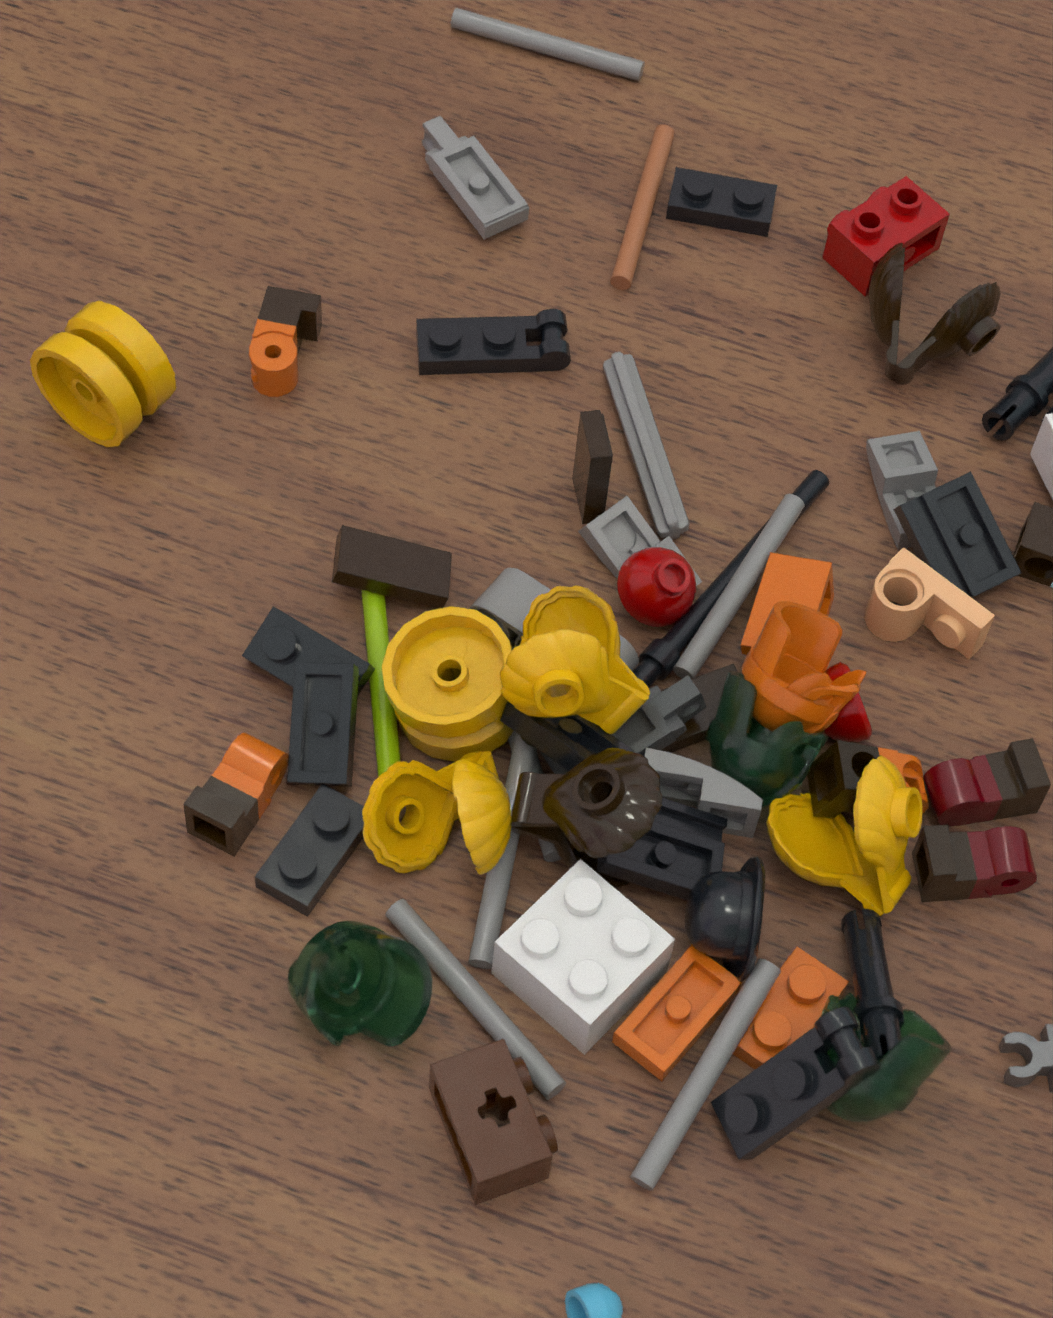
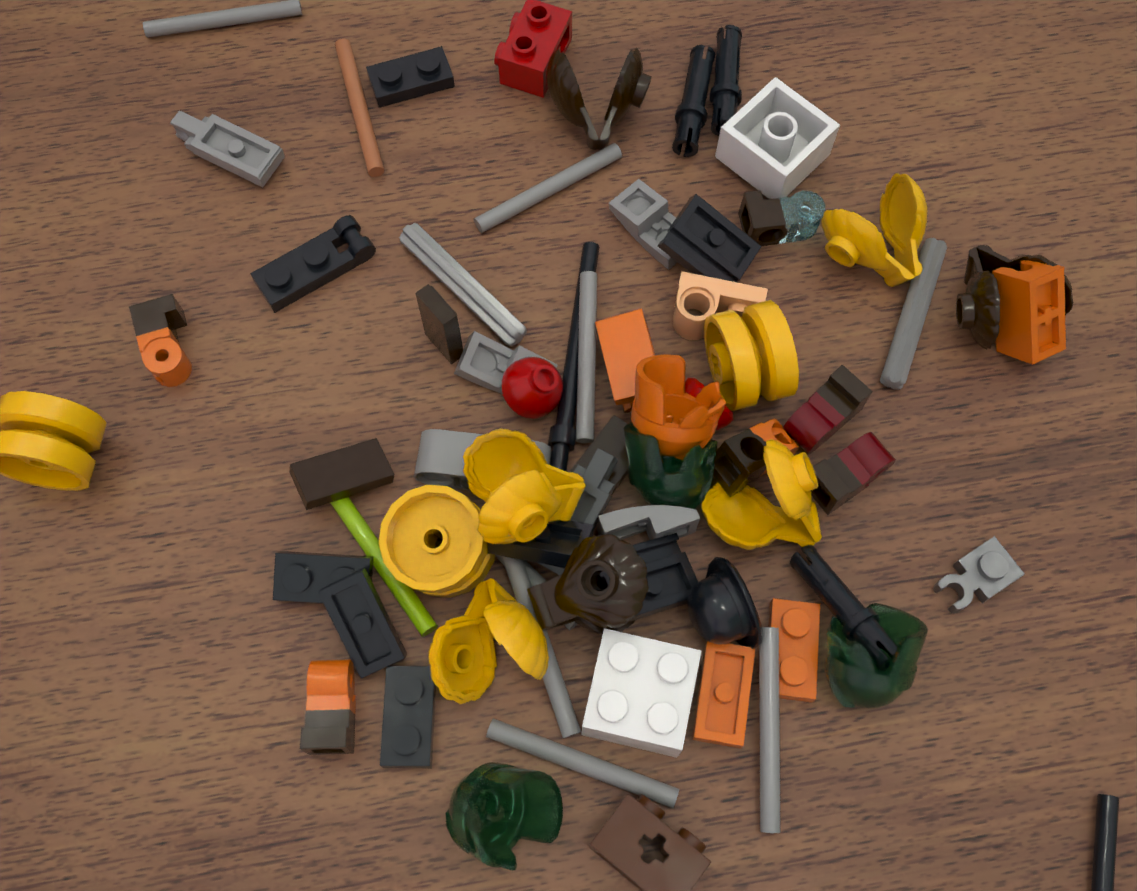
camera: 25 degrees left, 10 degrees up
(795, 1084) = (840, 710): black plate -> none
(809, 392) = (547, 188): none -> light grey bar
(937, 675) = (751, 354): none -> yellow wheel

